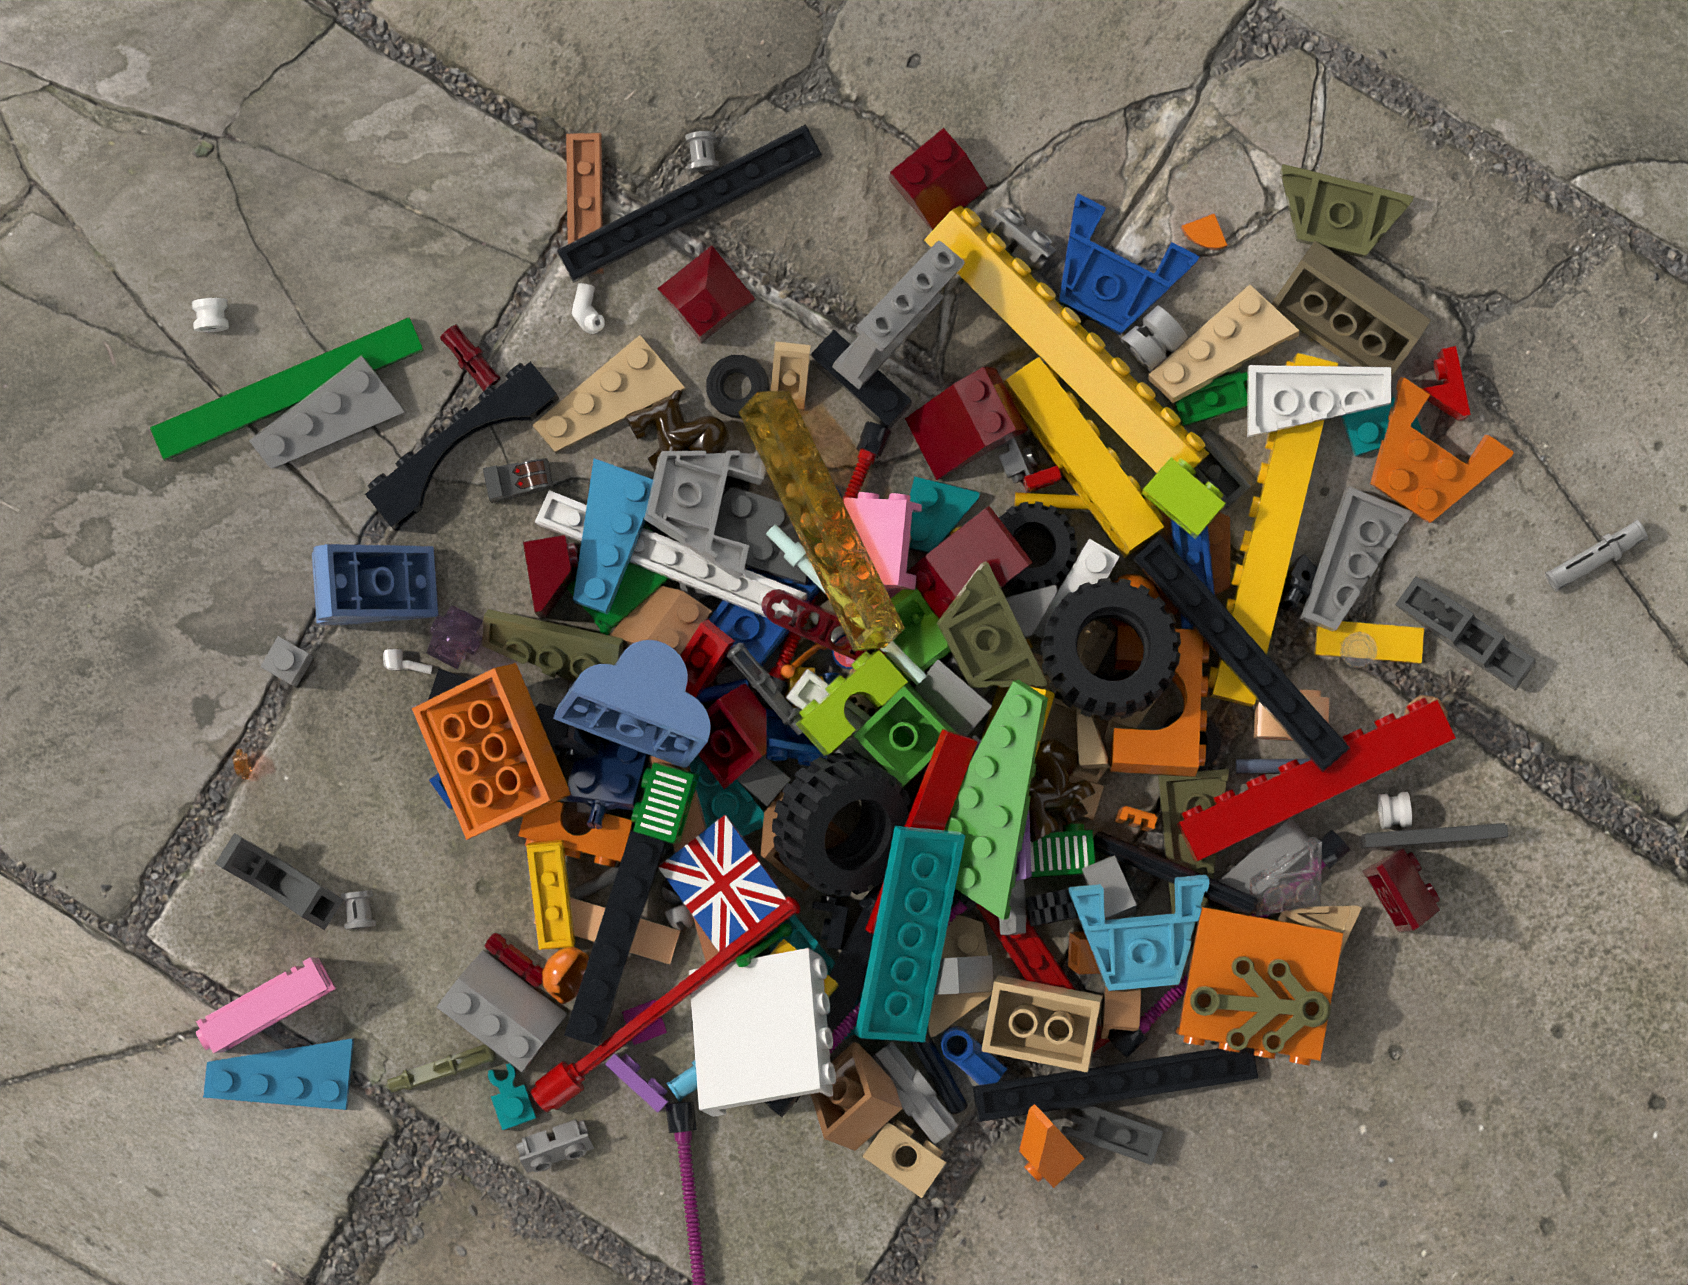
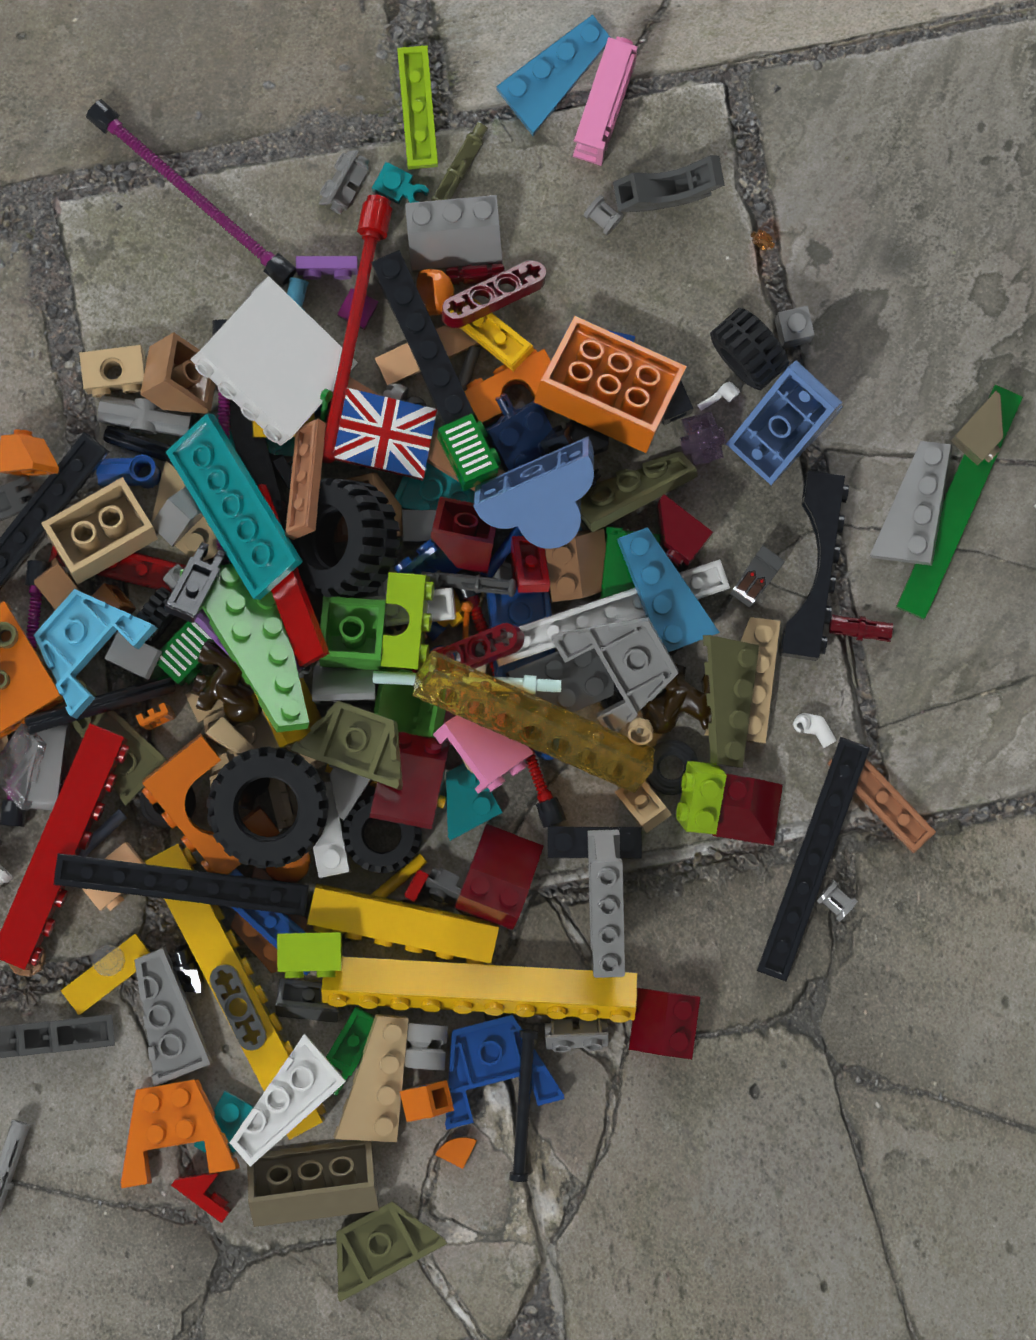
camera: 140 degrees right, 0 degrees up
(213, 426) = (982, 432): none -> dark tan slope
(344, 674) = (749, 348): none -> black tyre
(431, 1153) = (417, 107): none -> lime plate
(517, 921) = (490, 290): none -> dark red beam
(624, 405) = (731, 682): none -> olive wing
(736, 427) = (647, 732): none -> tan hinge
(737, 334) = (701, 797): none -> lime brick
(828, 899) = (305, 479): none -> nougat tile
(1004, 891) = (194, 584): none -> hinge
(1063, 267) = (523, 1105): none -> black bar
(1194, 293) = (426, 1101): none -> orange brick
(1299, 486) = (242, 1031): none -> dark grey beam

